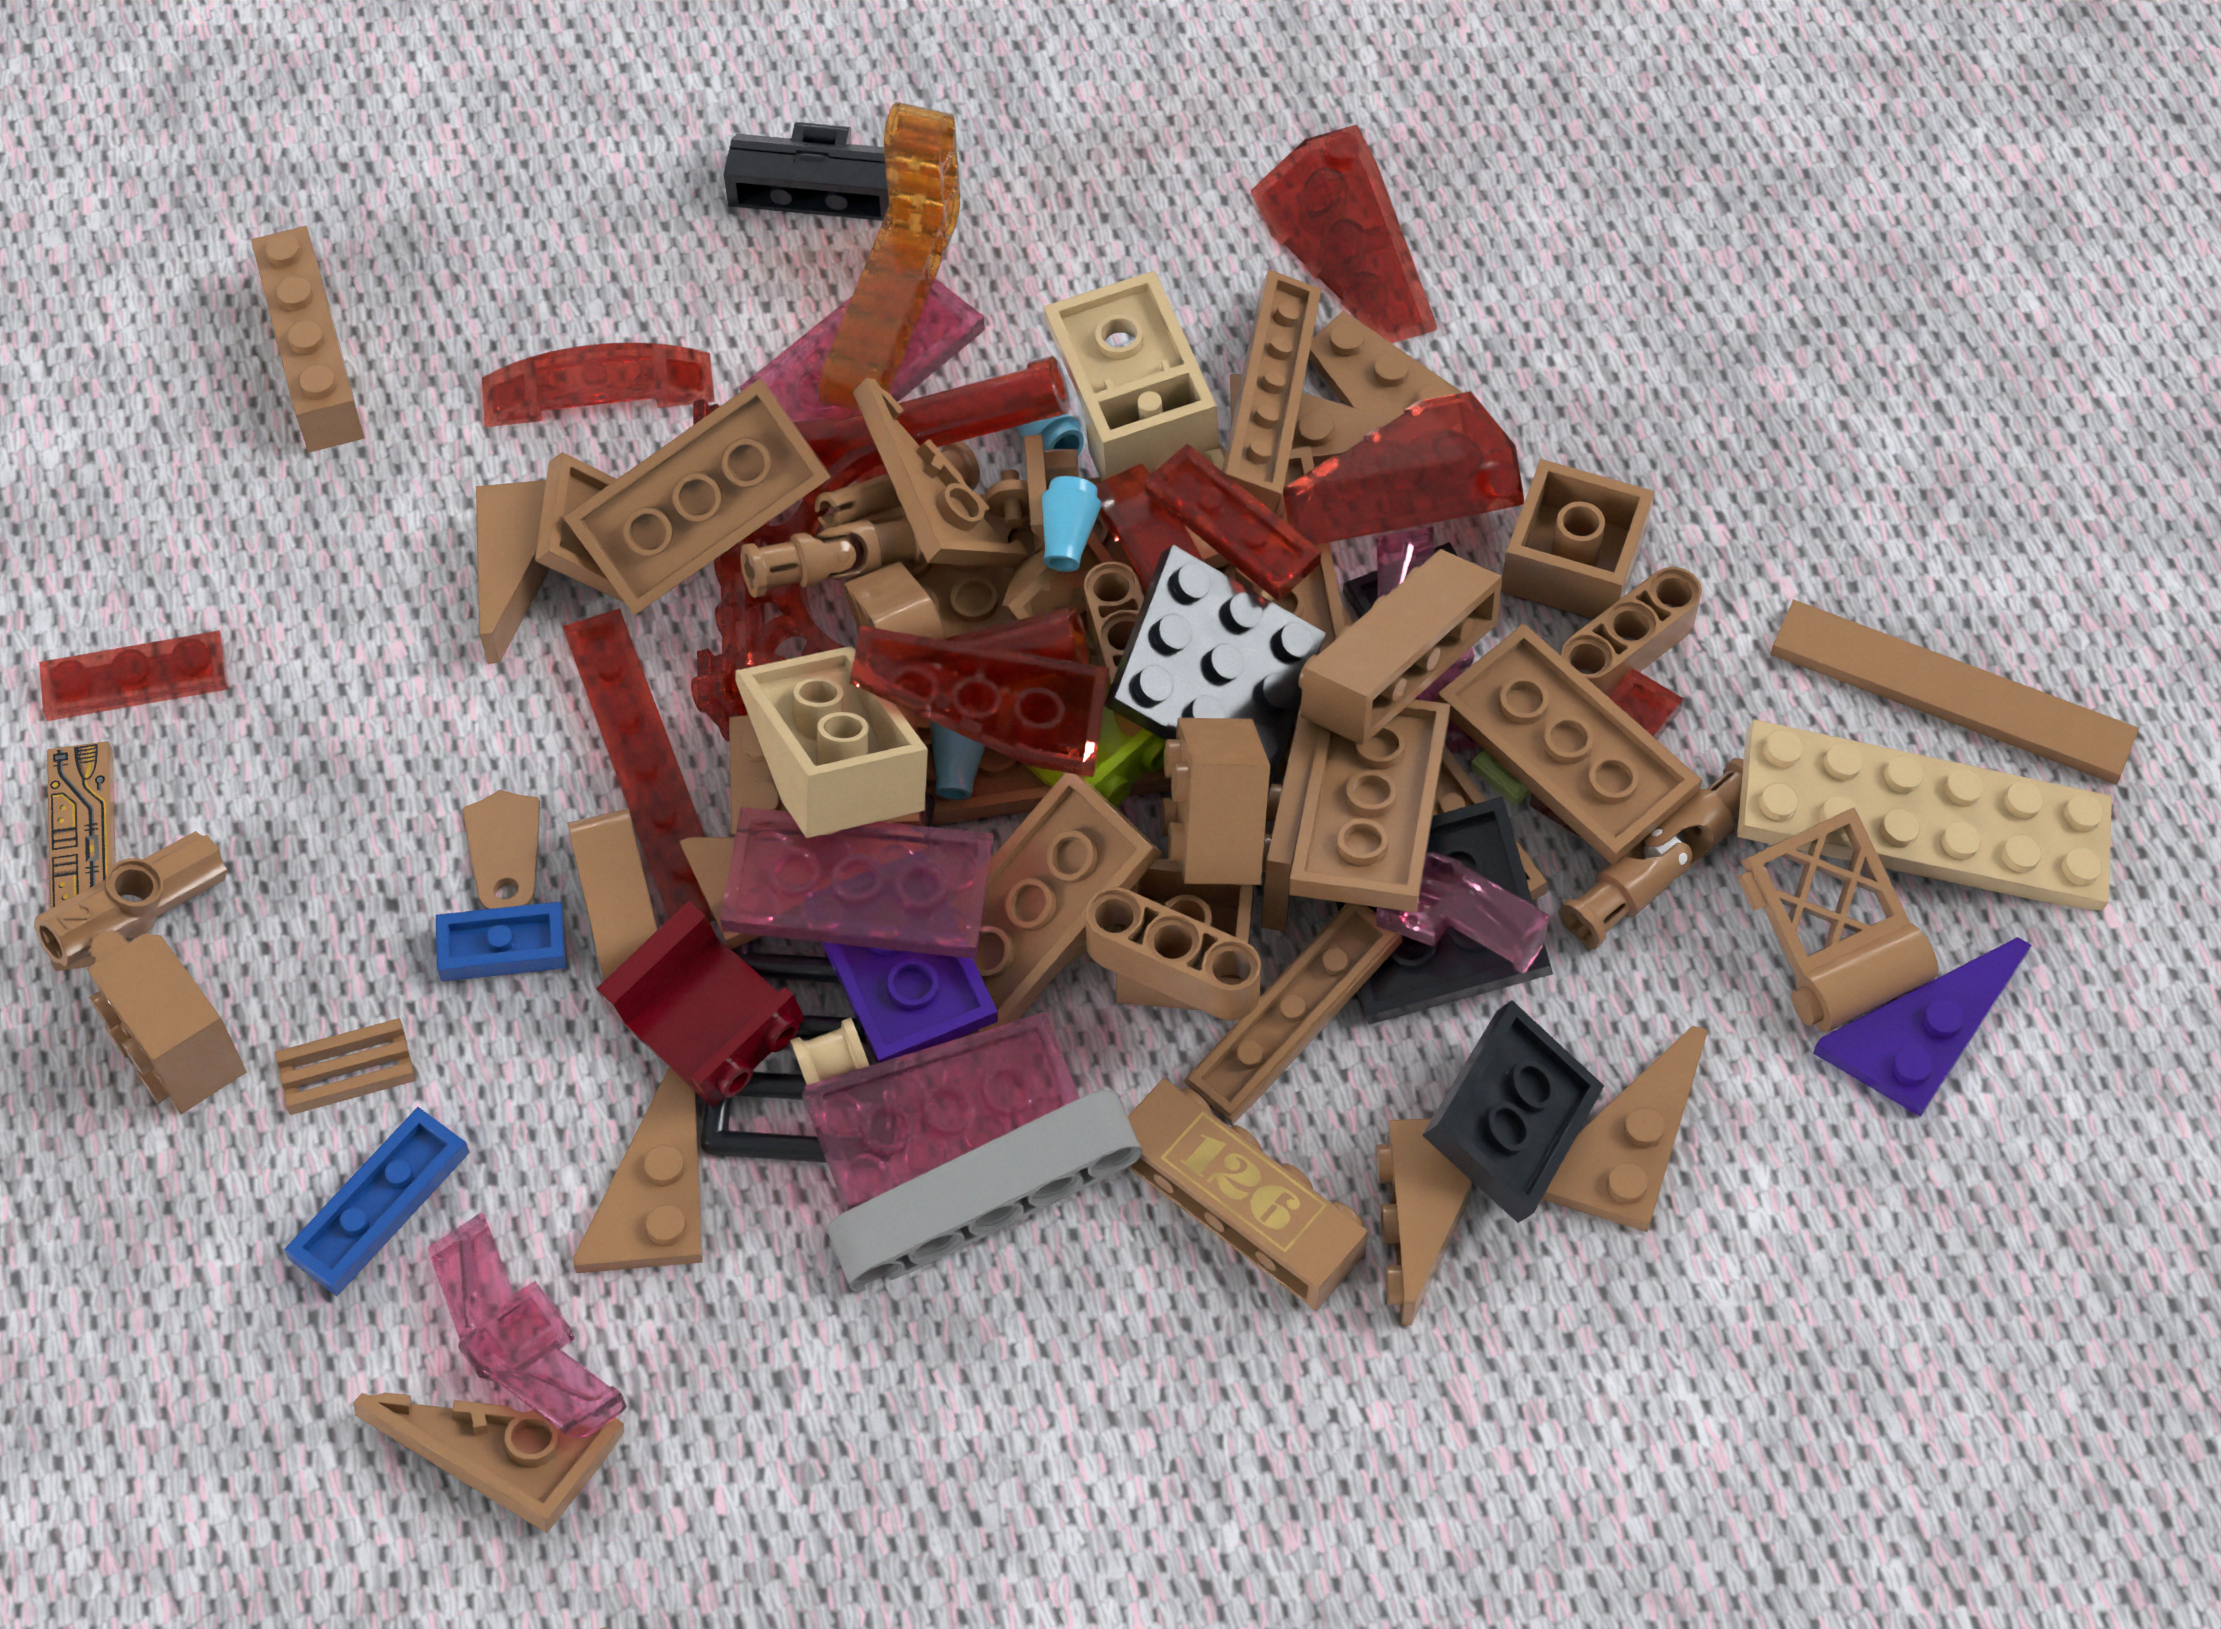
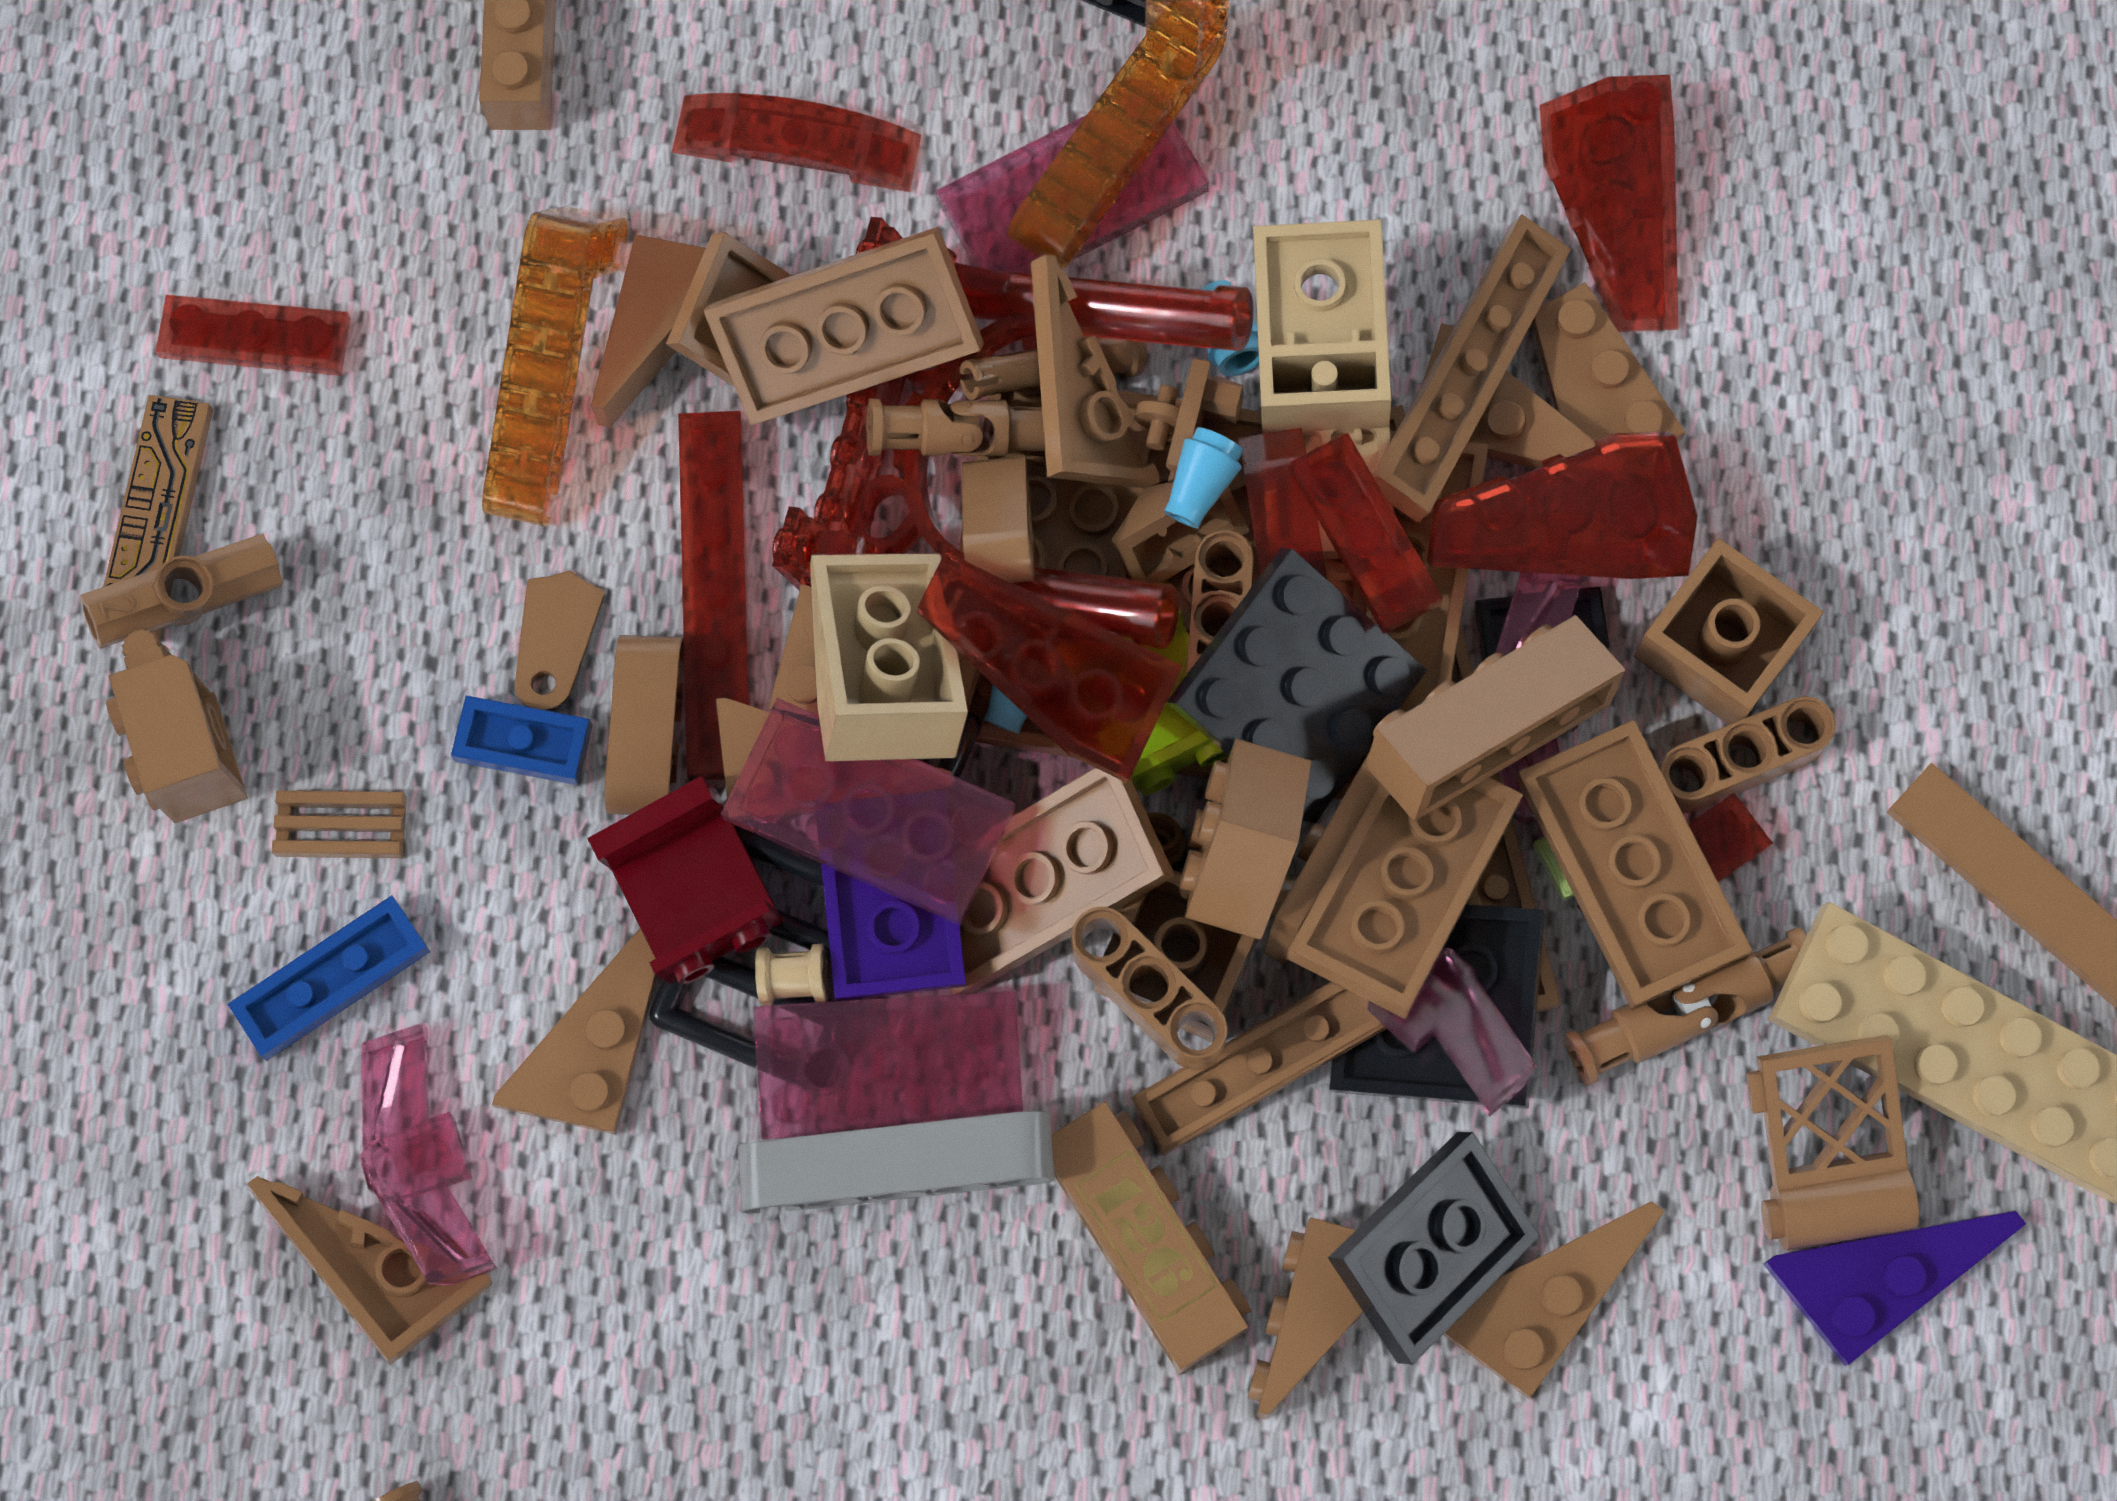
camera: 20 degrees right, 15 degrees up
(418, 525) = (542, 356): none -> clear orange beam

